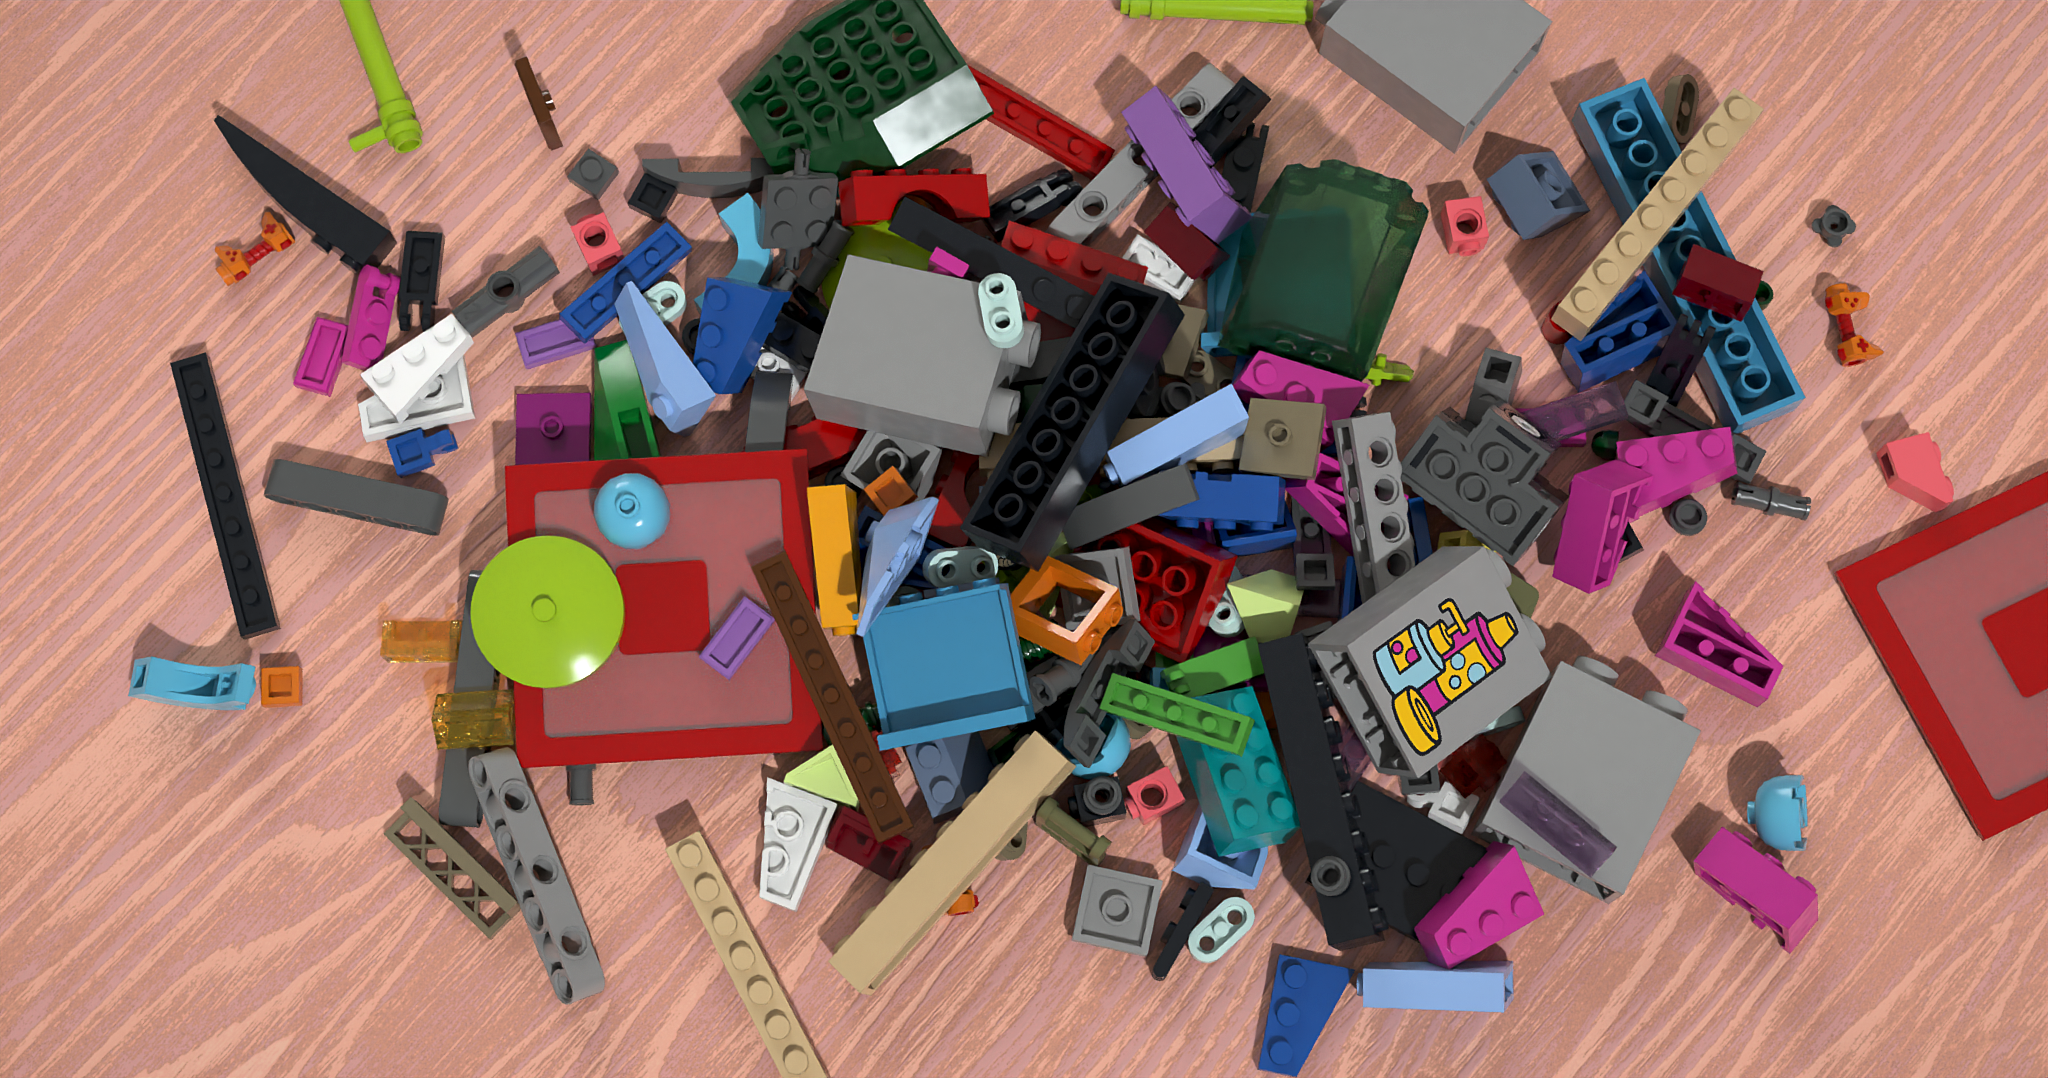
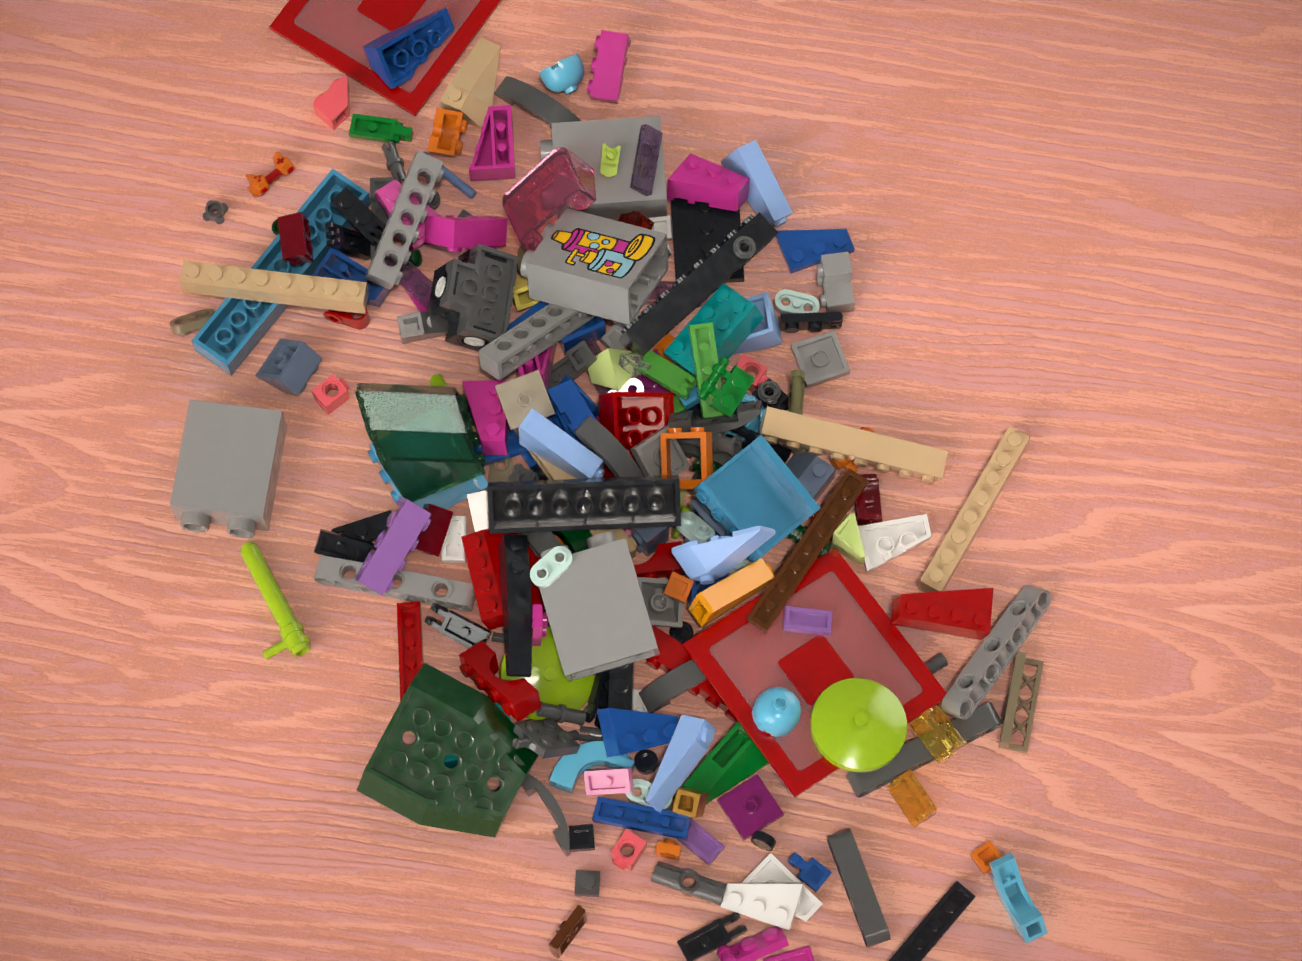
camera: 120 degrees left, 5 degrees down
(496, 416) = (763, 840): none -> black tile
(563, 291) = (668, 849): none -> orange plate
(597, 342) = (690, 802): none -> pearl gold brick
(627, 850) = (947, 612): none -> red wedge
(704, 261) = (608, 781): none -> bright pink plate
(1123, 728) = (732, 390): none -> green plate
(1214, 1002) = (835, 278): none -> light grey brick
(1254, 629) = (633, 363): none -> clear slope
(1588, 658) = (545, 190): none -> clear pink windscreen
(1588, 772) = (609, 160): none -> lime piece
(1601, 359) = (423, 166): none -> light grey brick
(1708, 390) = (358, 215): none -> black hinge
(1713, 566) = (457, 182): none -> medium blue bar
(1753, 752) = (533, 101): none -> dark grey slope
(1776, 594) = (447, 132): none -> orange cylinder
(1836, 676) = (474, 83): none -> tan wedge
(1840, 508) = (379, 129): none -> green hinge
(1951, 614) = (404, 49): none -> blue wedge

